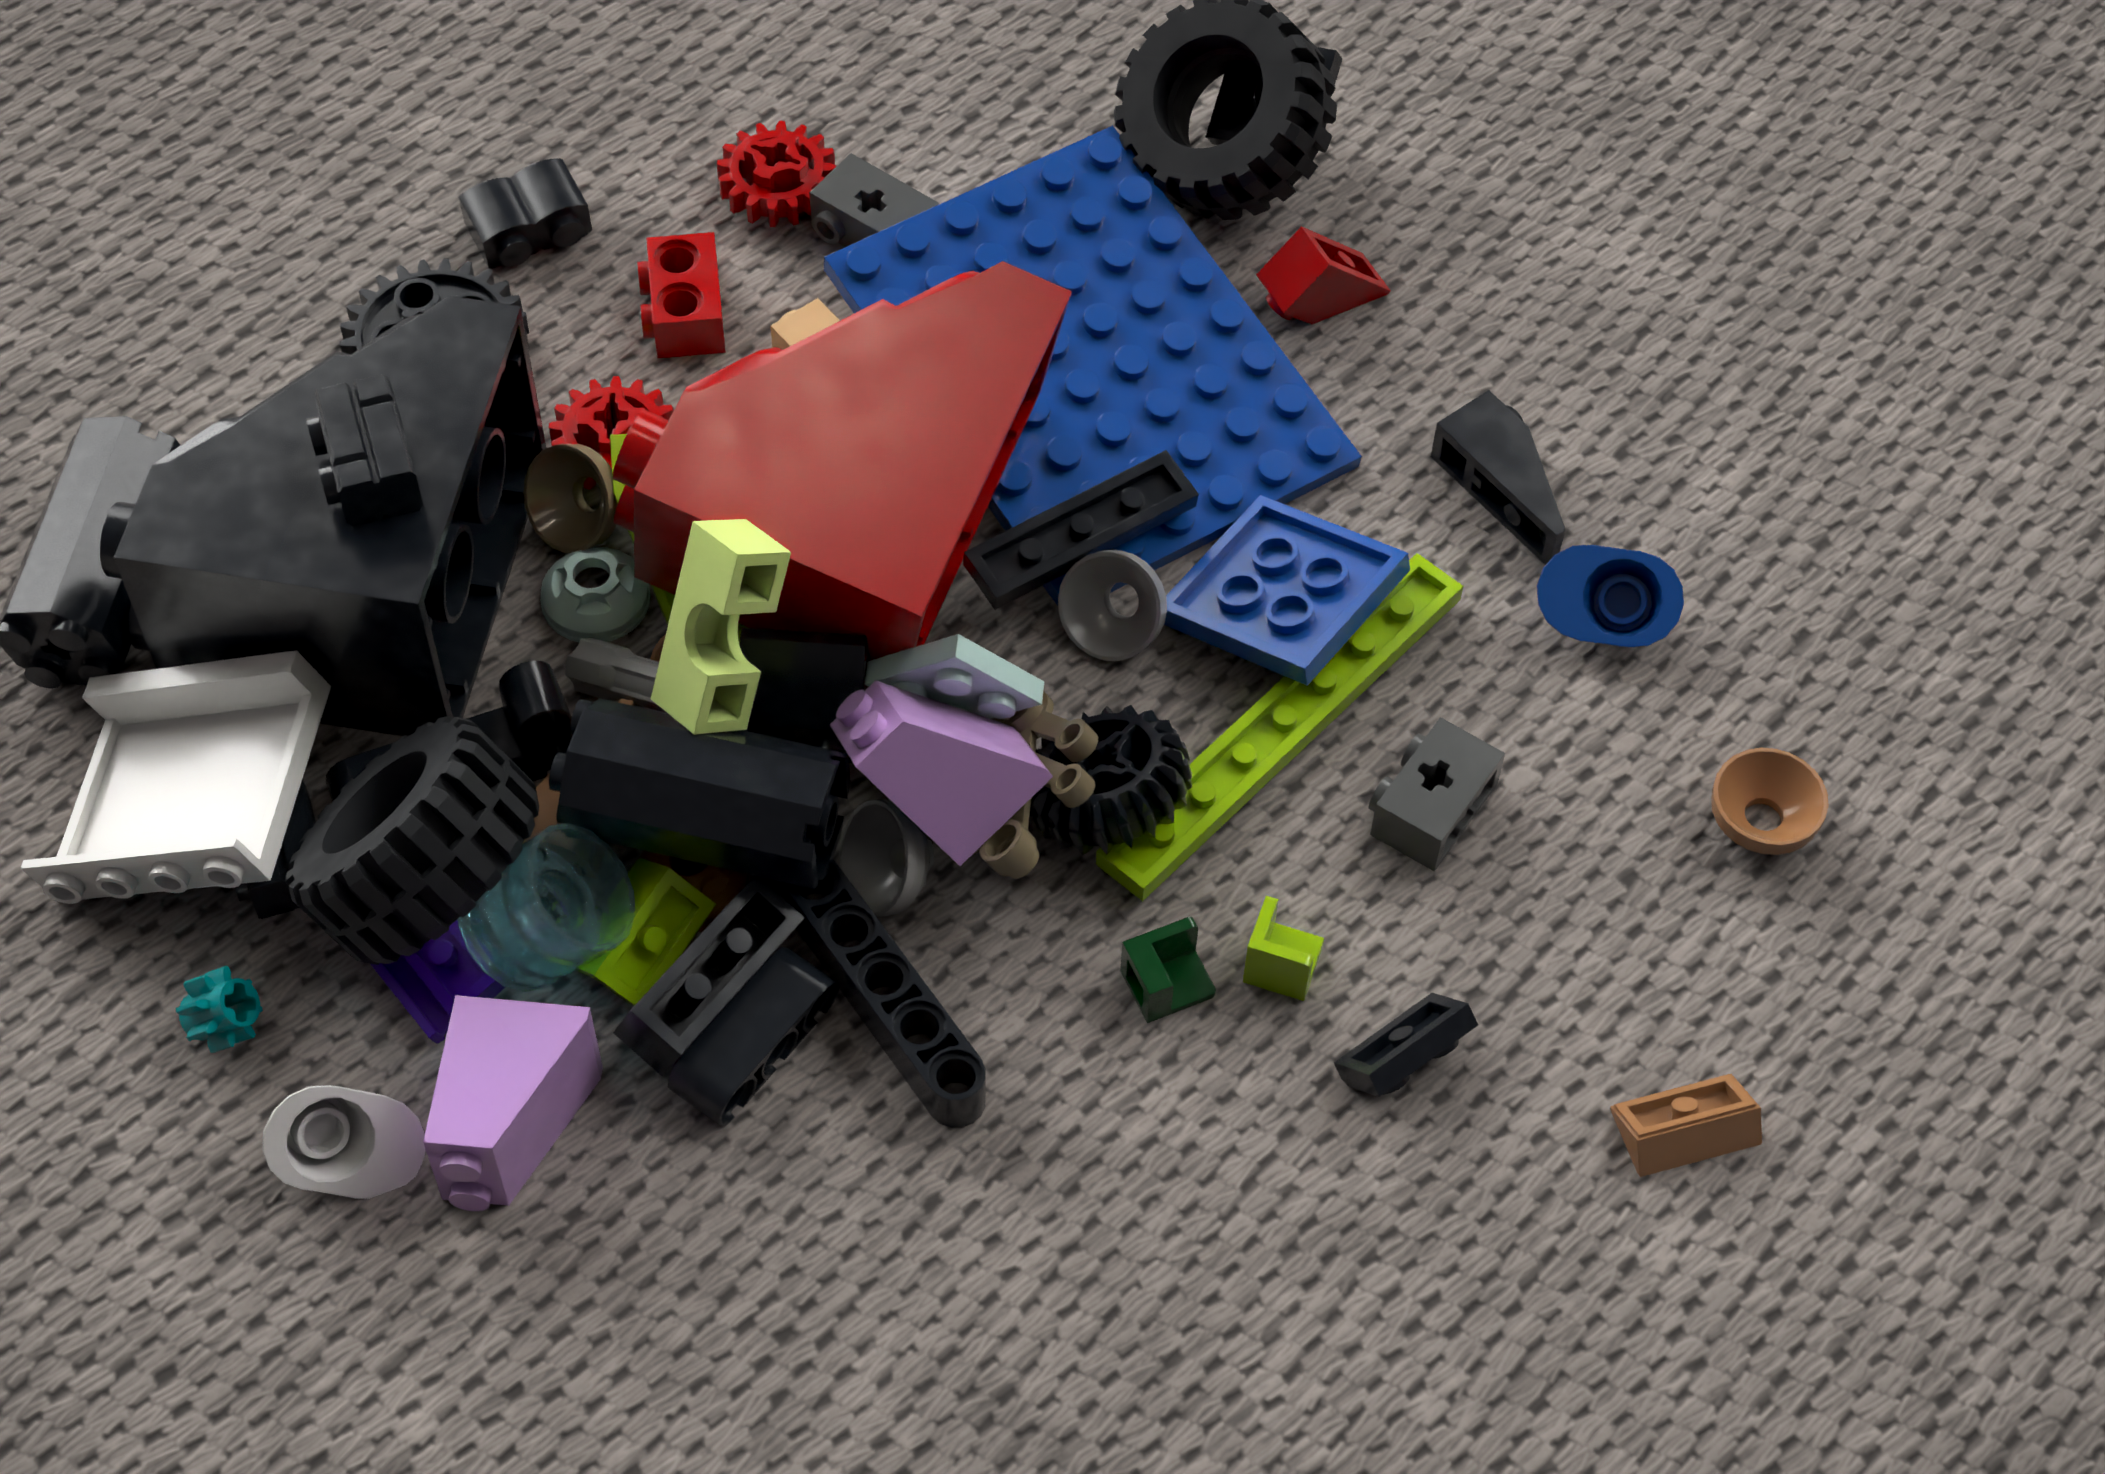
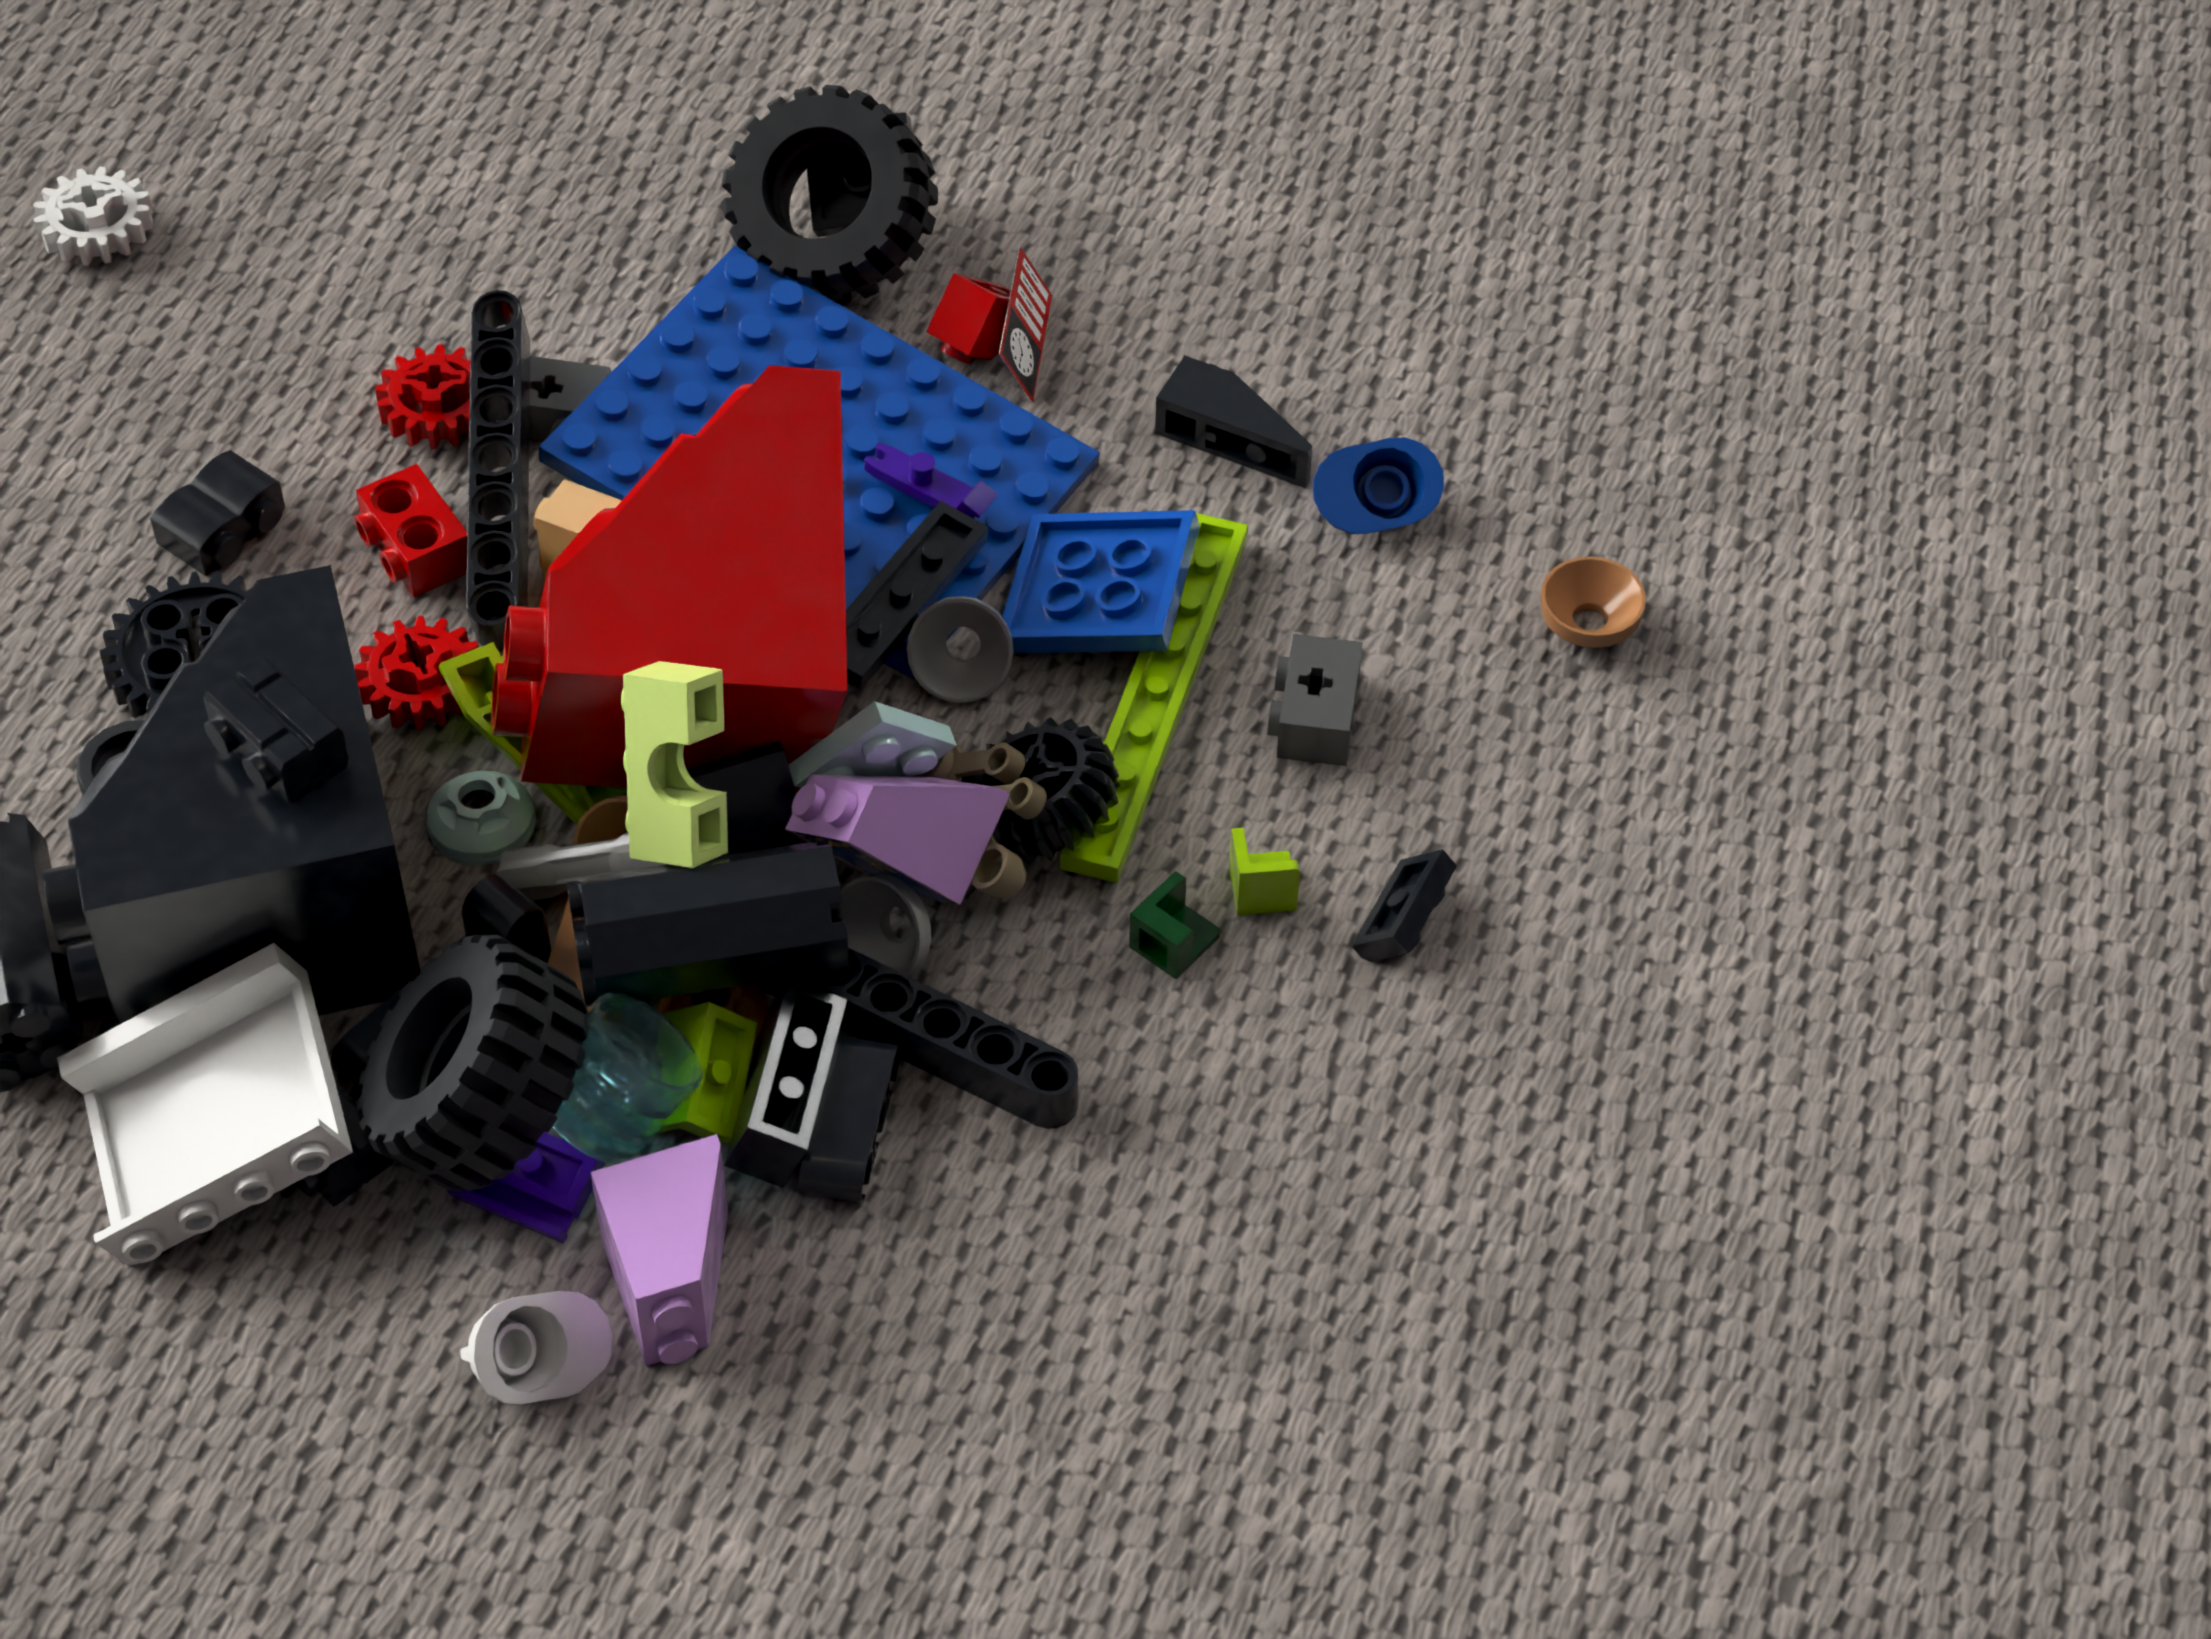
camera: 25 degrees left, 5 degrees down
(219, 1009) = (353, 1288): teal gear -> none
(556, 498) = (402, 749): dark tan piece -> none
(787, 239) = (493, 447): none -> black beam
(1168, 427) = (921, 480): none -> dark purple piece
(1355, 302) = (1025, 324): none -> sticker
(1688, 1124) = (1661, 880): medium nougat slope -> none

